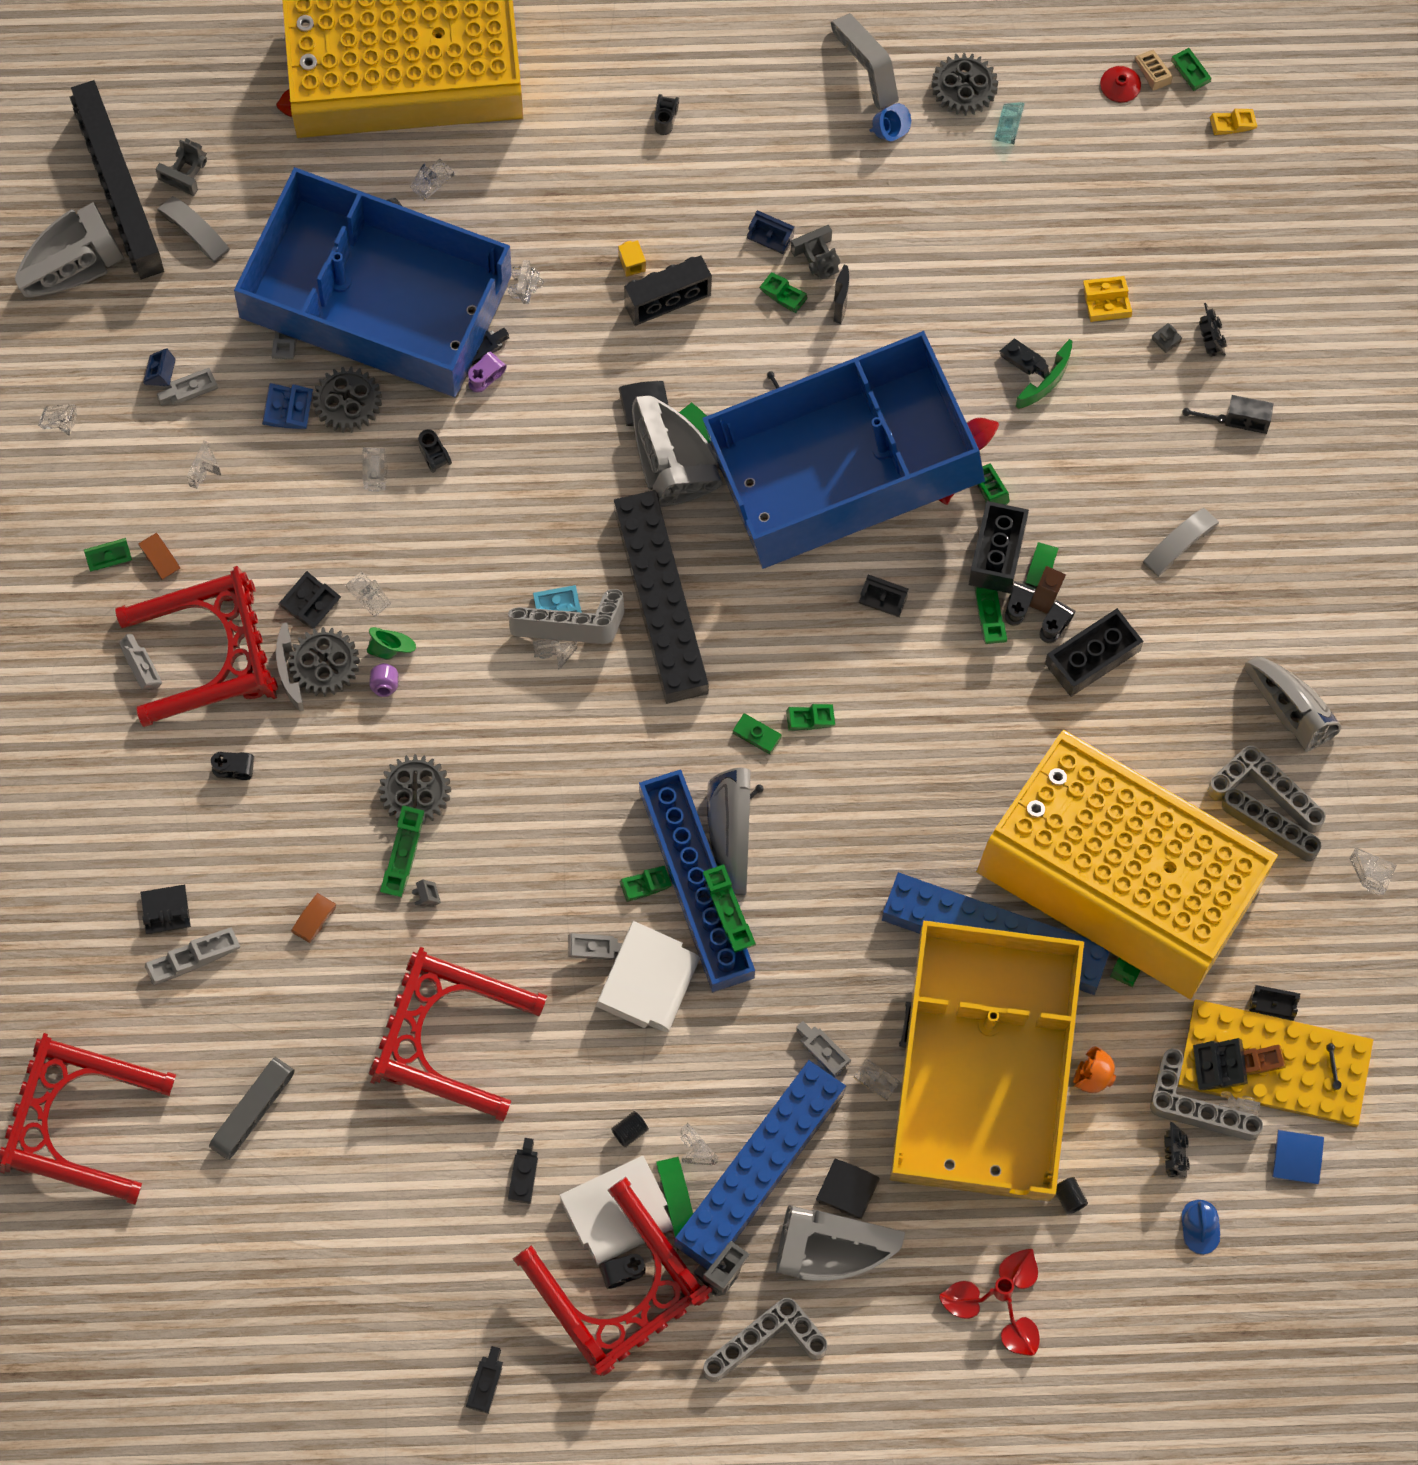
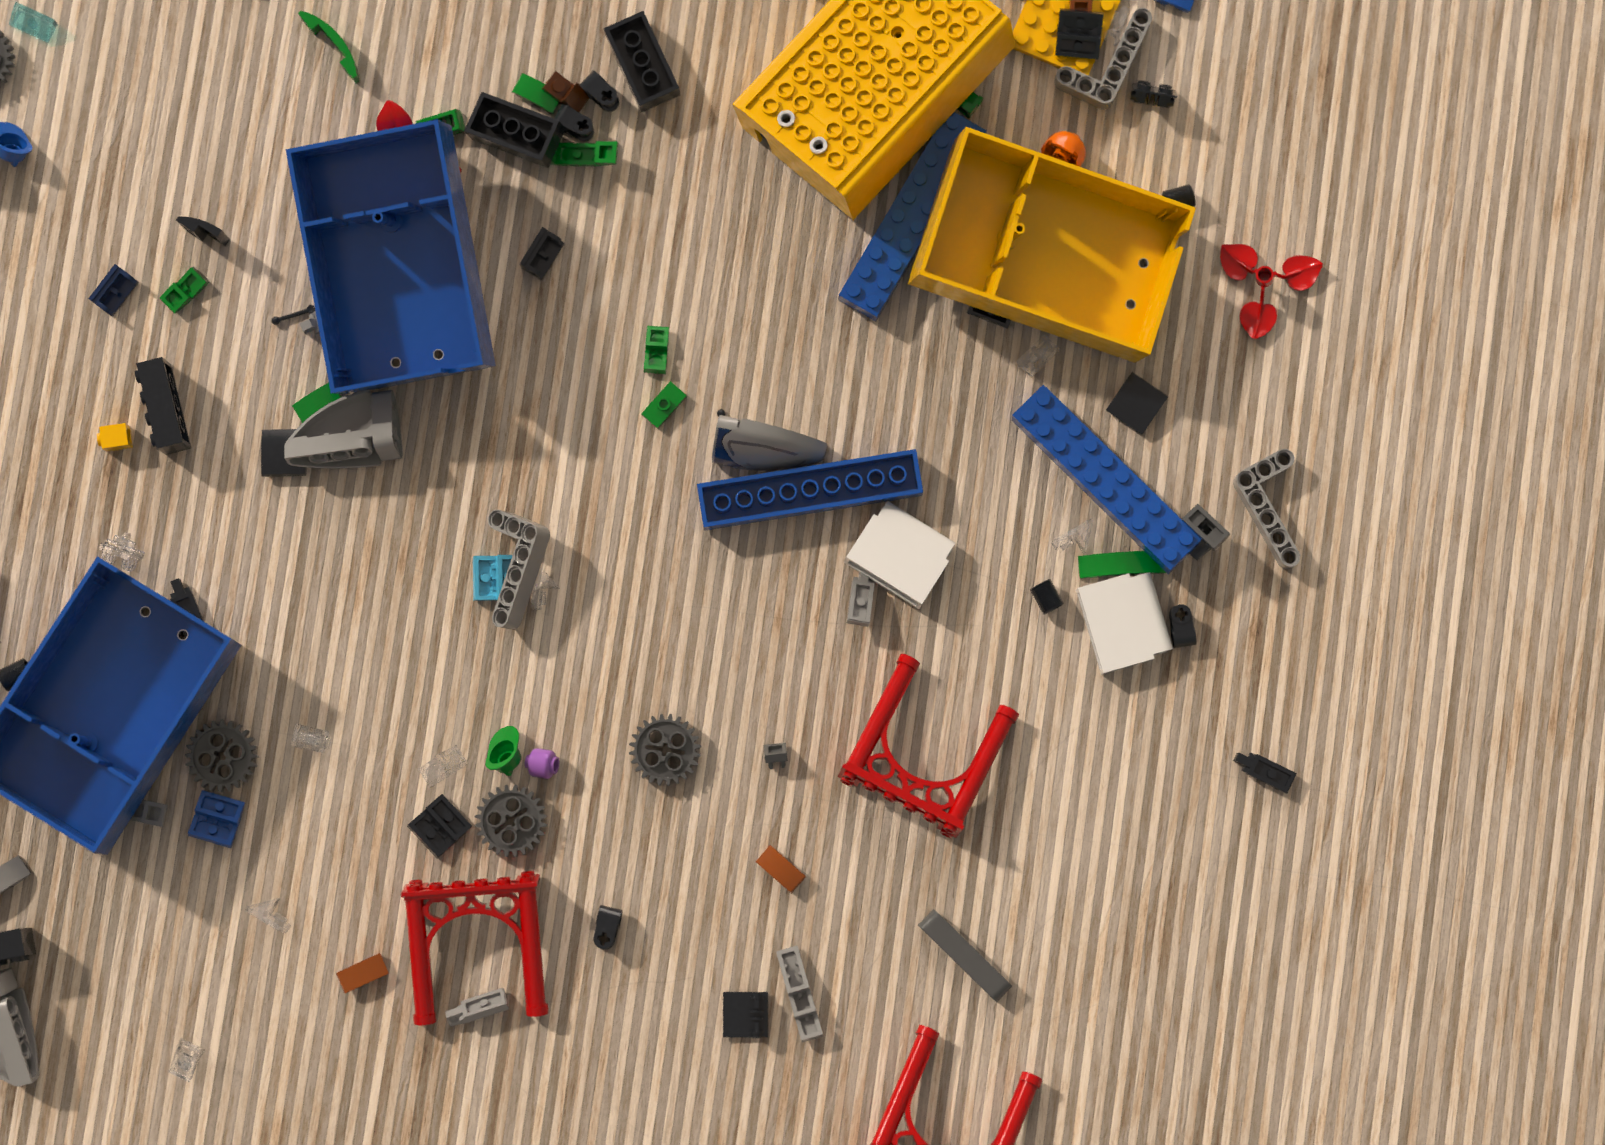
camera: 80 degrees left, 15 degrees up
(107, 554) = (351, 1026): green plate -> none
(160, 368) = (149, 946): dark blue slope -> none
(188, 387) = (175, 918): light grey hinge -> none
(284, 645) = (483, 857): light grey slope -> none
(403, 851) = (729, 771): green slope -> none
(435, 453) = (299, 675): black piece -> none
(485, 372) = (215, 606): medium lavender piece -> none
(523, 1173) = (1071, 704): black hinge -> none
(572, 1319) = (1218, 565): red arch -> none
(645, 884) = (801, 540): green slope -> none
(661, 597) = (501, 473): black brick -> none
(728, 909) = (854, 462): green slope -> none
(813, 245) = (136, 248): dark grey tile -> none
(823, 1049) = (997, 400): light grey hinge -> none
(832, 1246) = (1192, 426): light grey panel -> none
(1025, 358) = (309, 62): black hinge -> none
(1200, 1226) = (1223, 87): blue piece -> none

